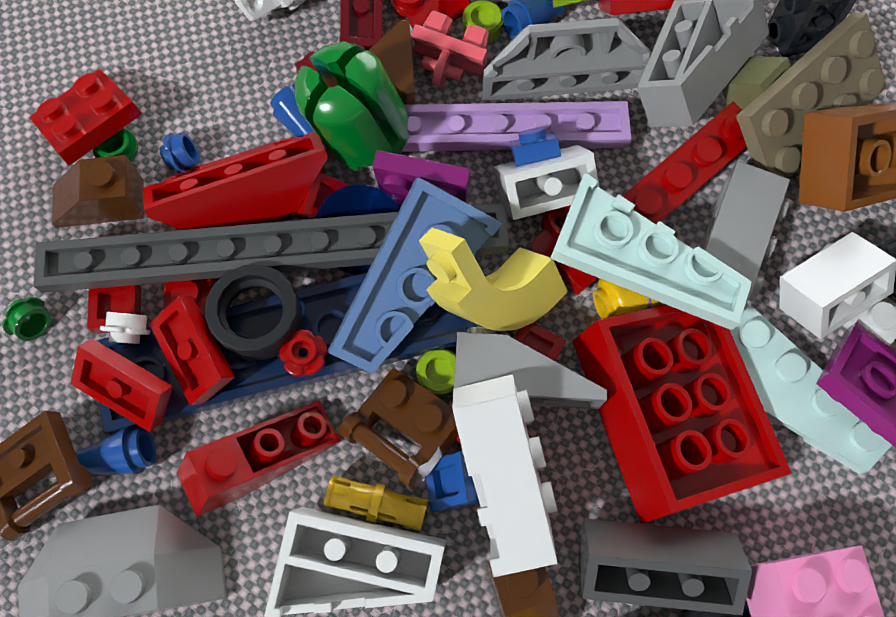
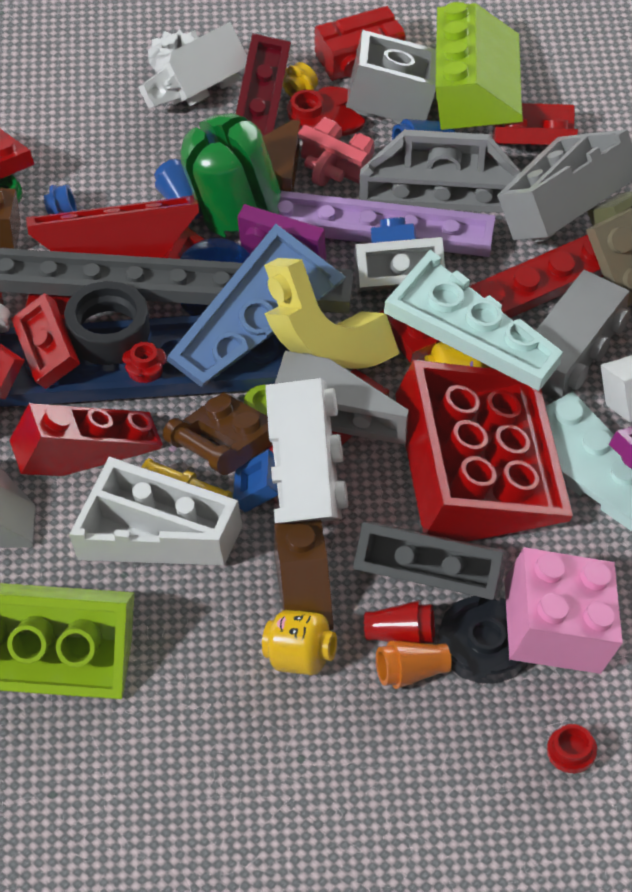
camera: 10 degrees right, 20 degrees down
(485, 15) = (377, 130): lime tile -> none

